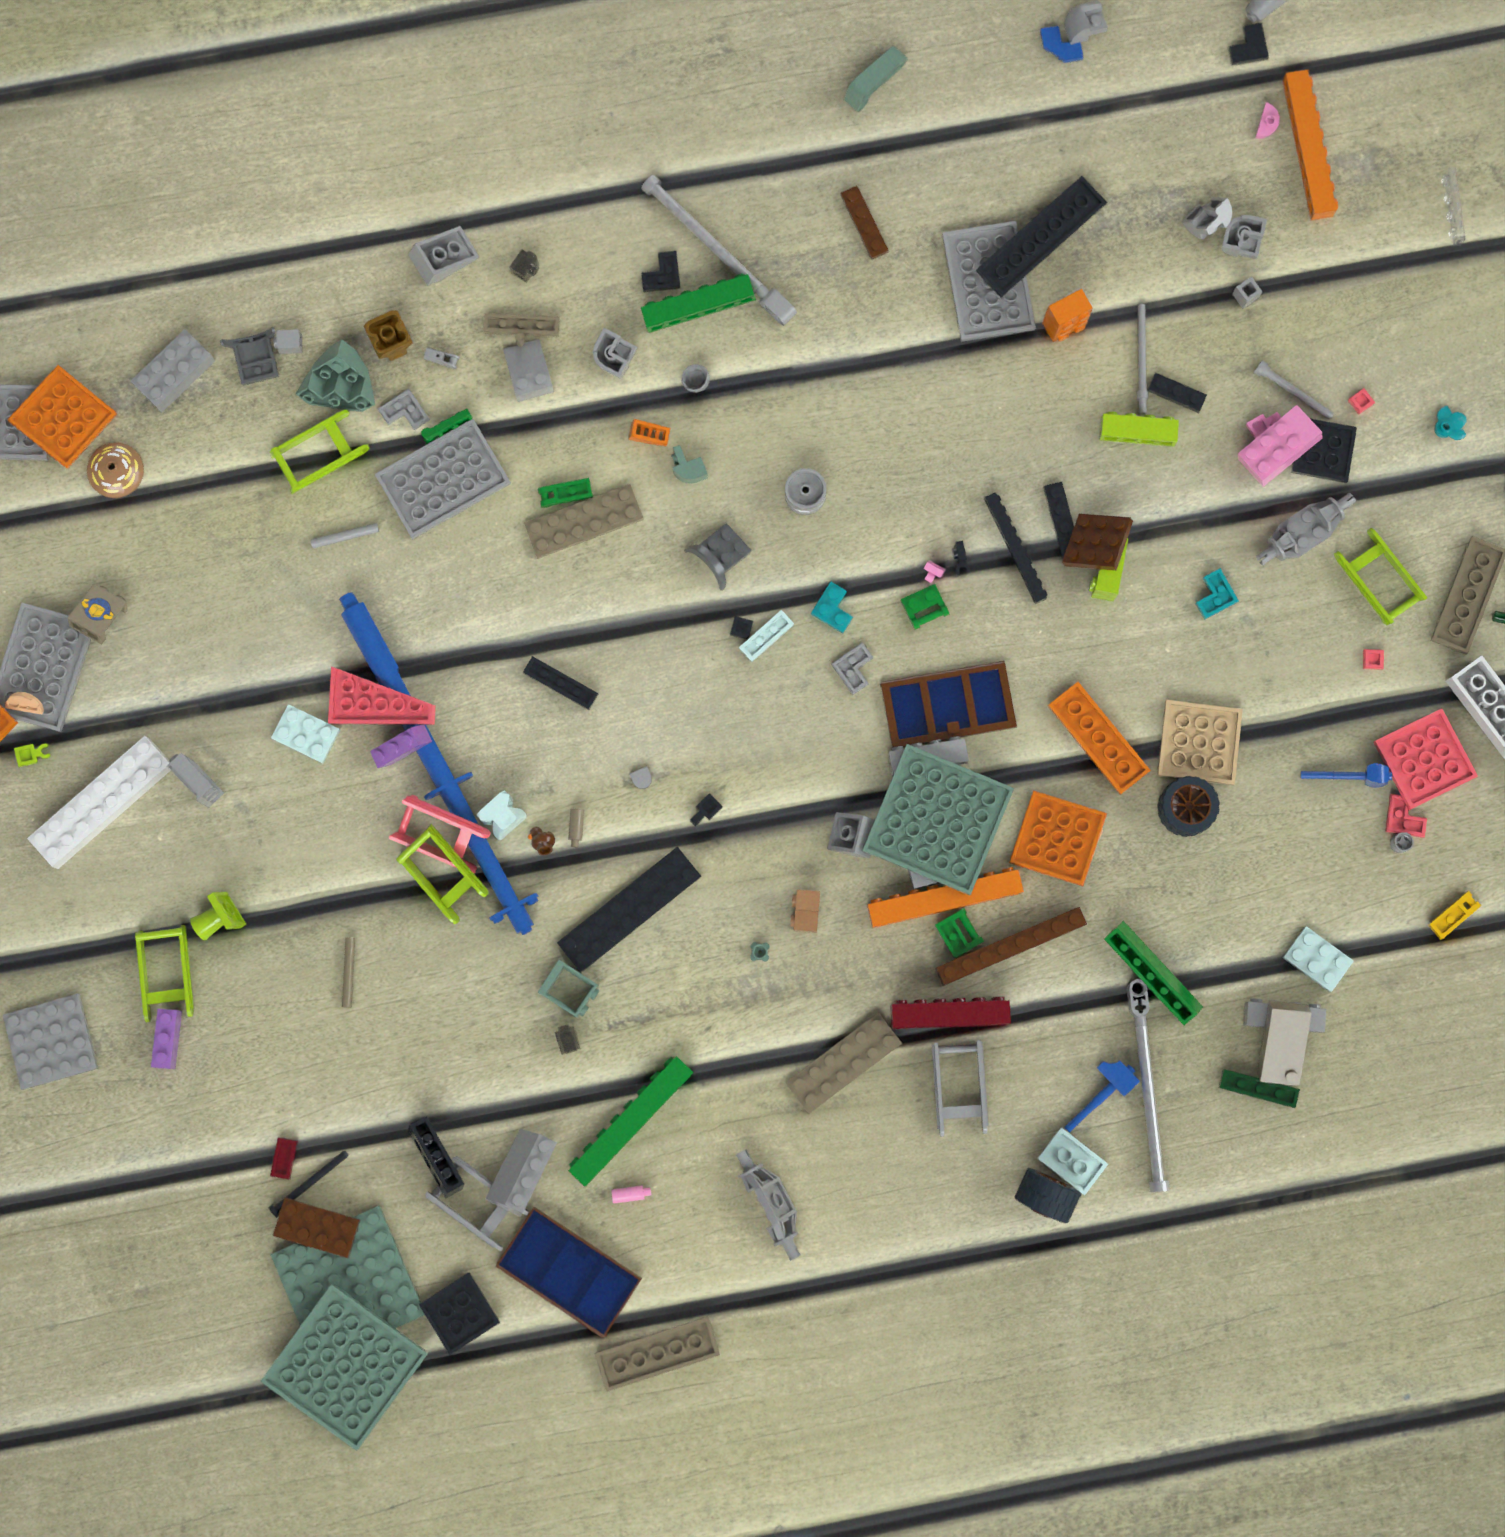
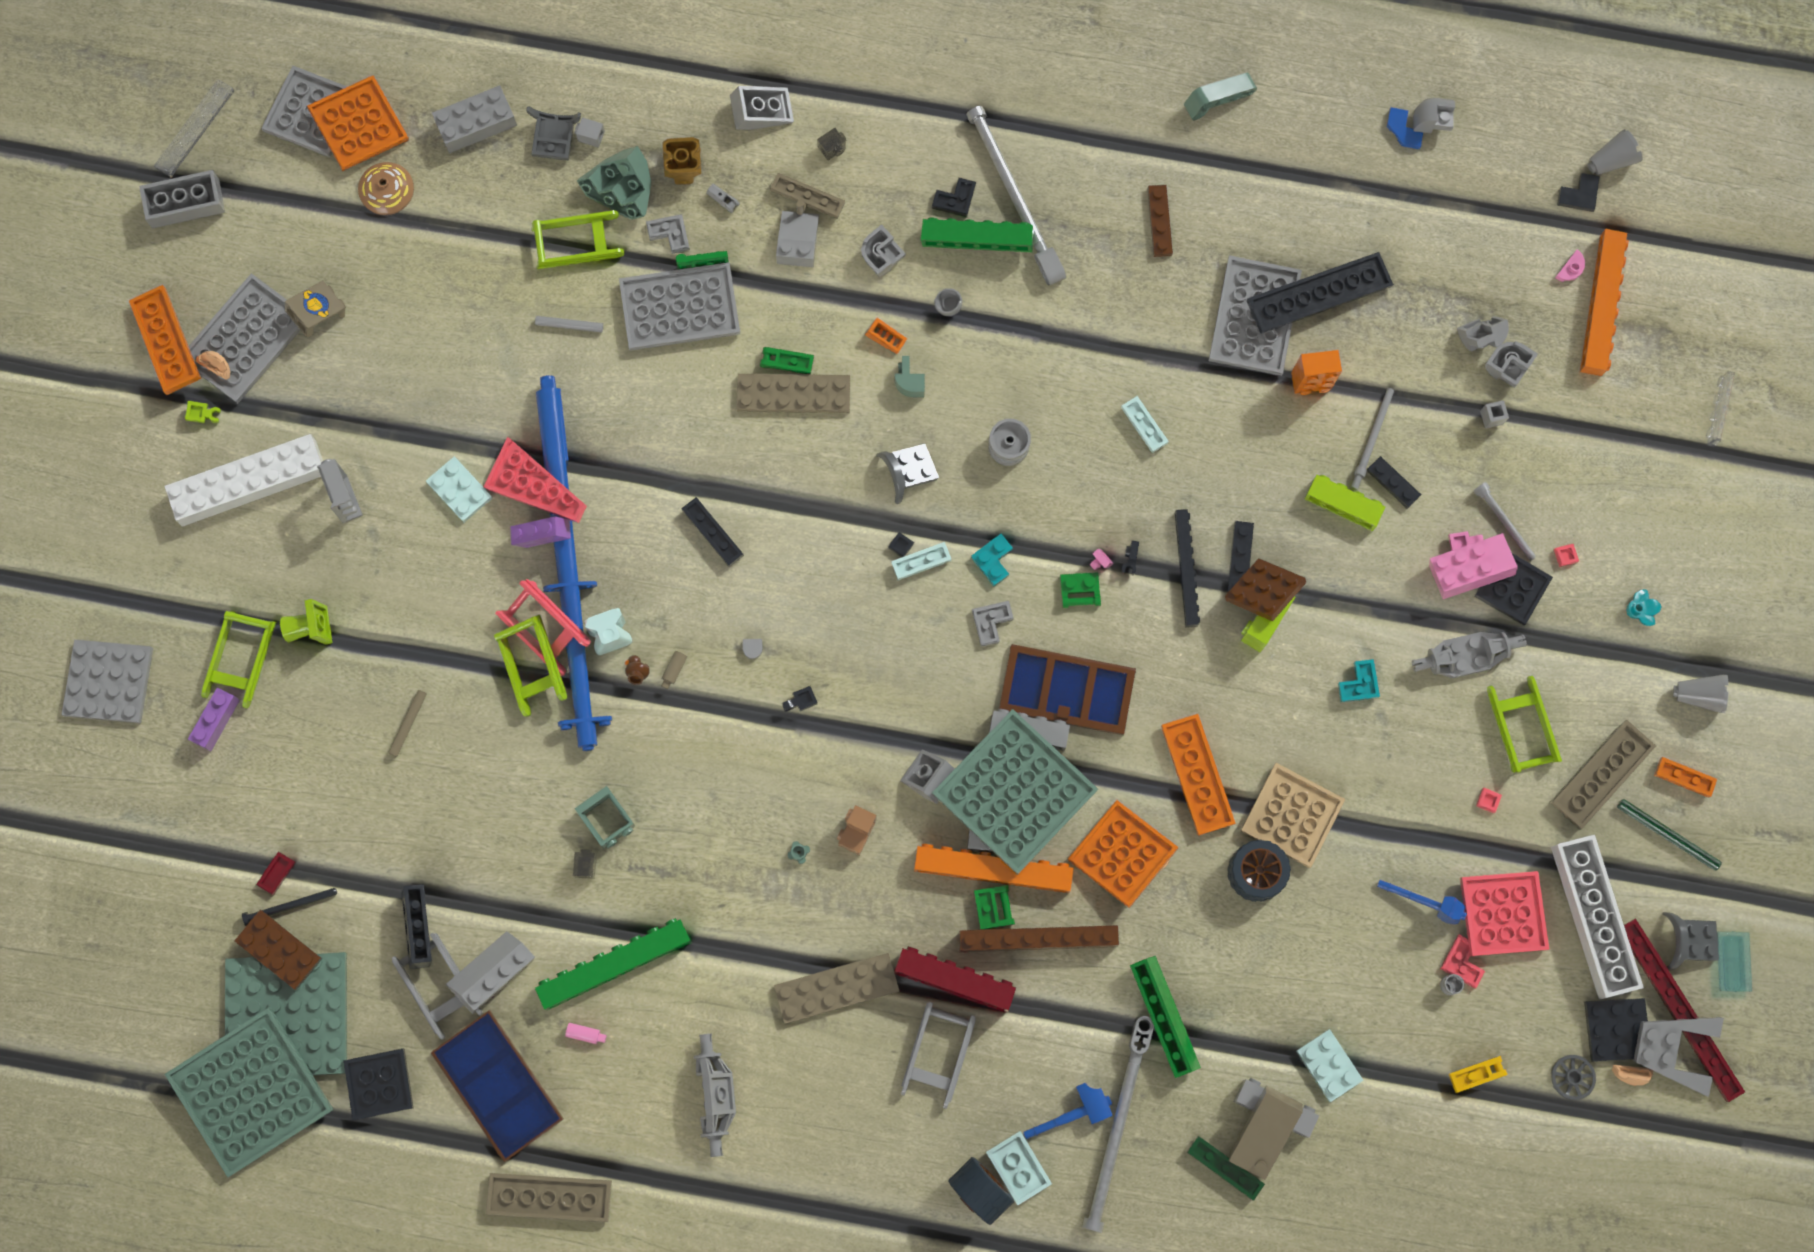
camera: 15 degrees right, 5 degrees down
(629, 909) = (691, 765): black plate -> none
(925, 426) = (1144, 424): none -> light aqua plate

